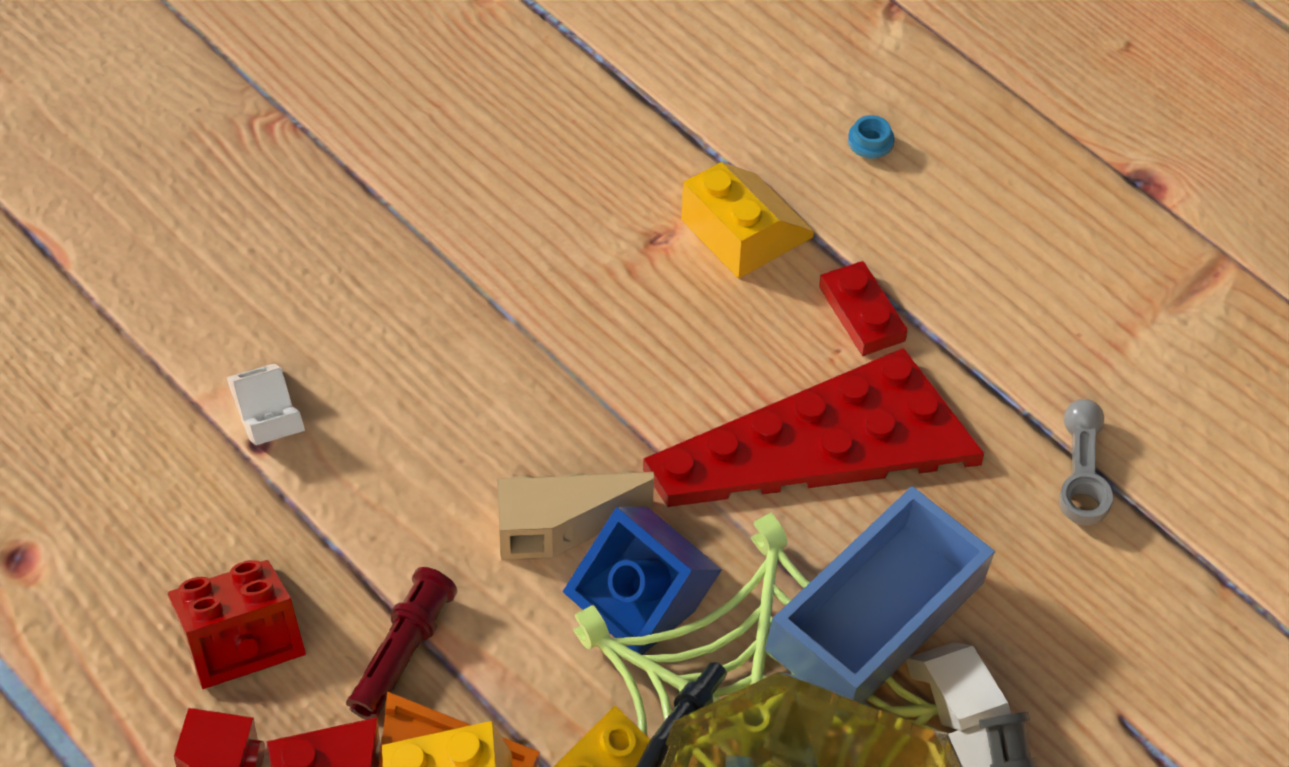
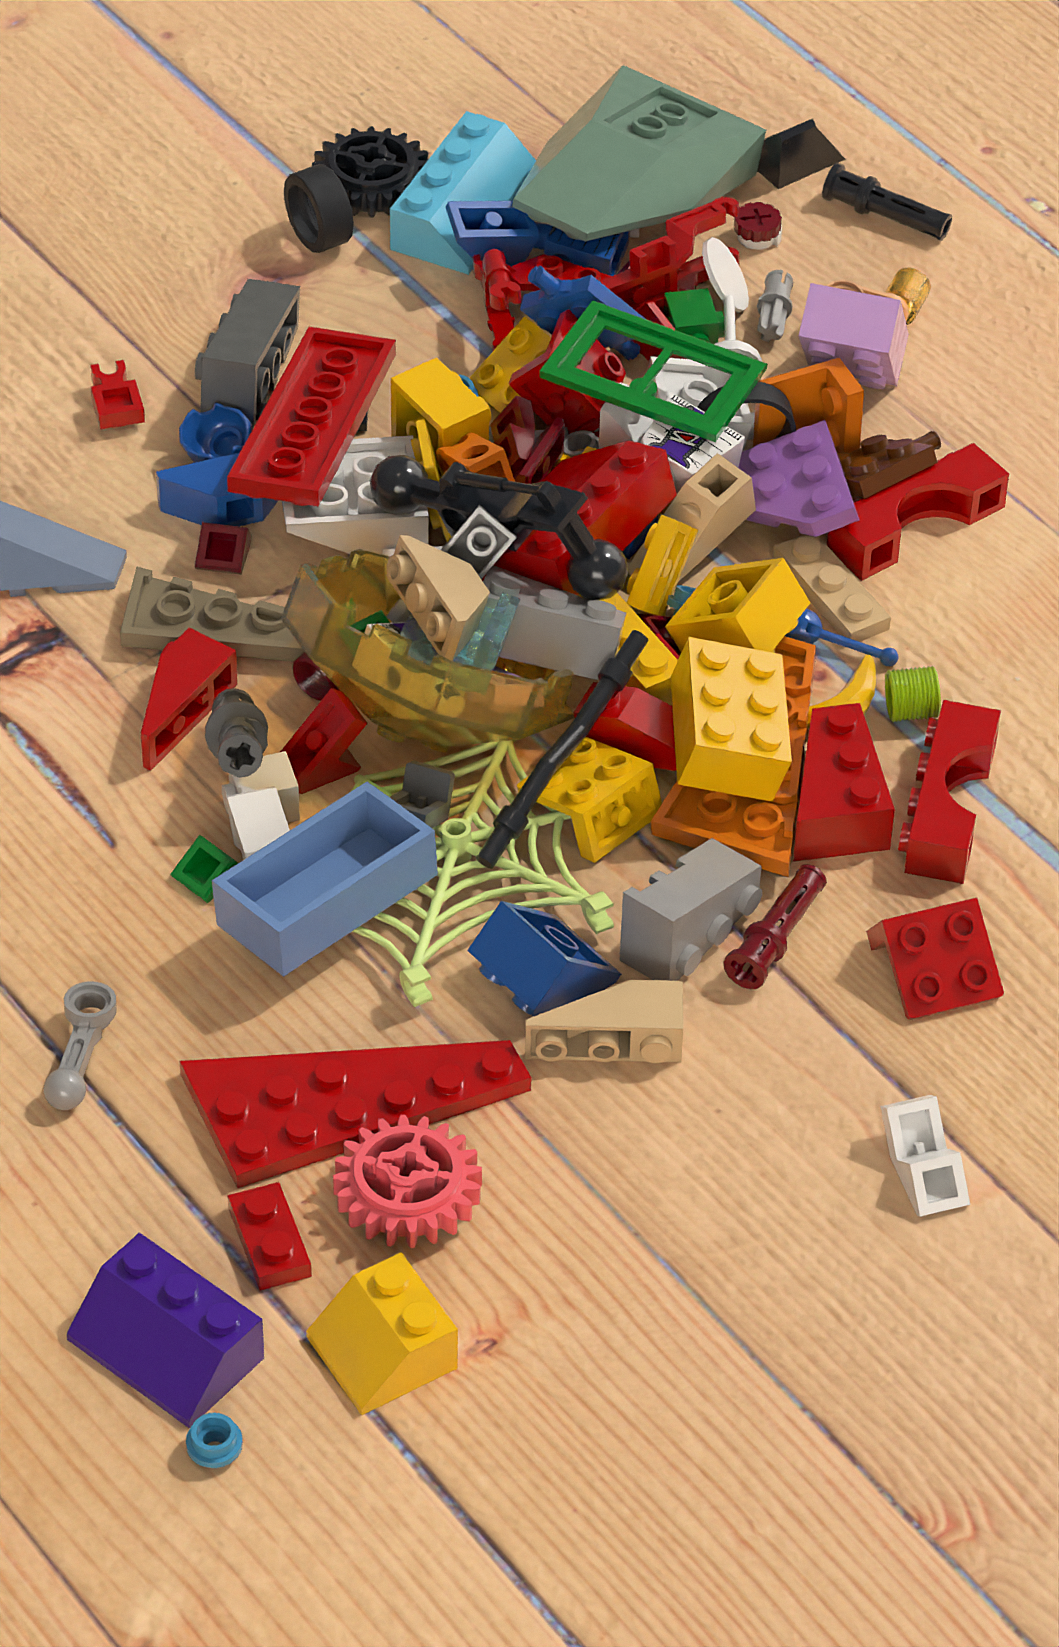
camera: 175 degrees left, 5 degrees down
(495, 629) = (687, 910): none -> light grey wedge
(746, 344) = (410, 1189): none -> coral gear
(925, 215) = (167, 1330): none -> dark purple slope
(1017, 679) = (200, 866): none -> green slope

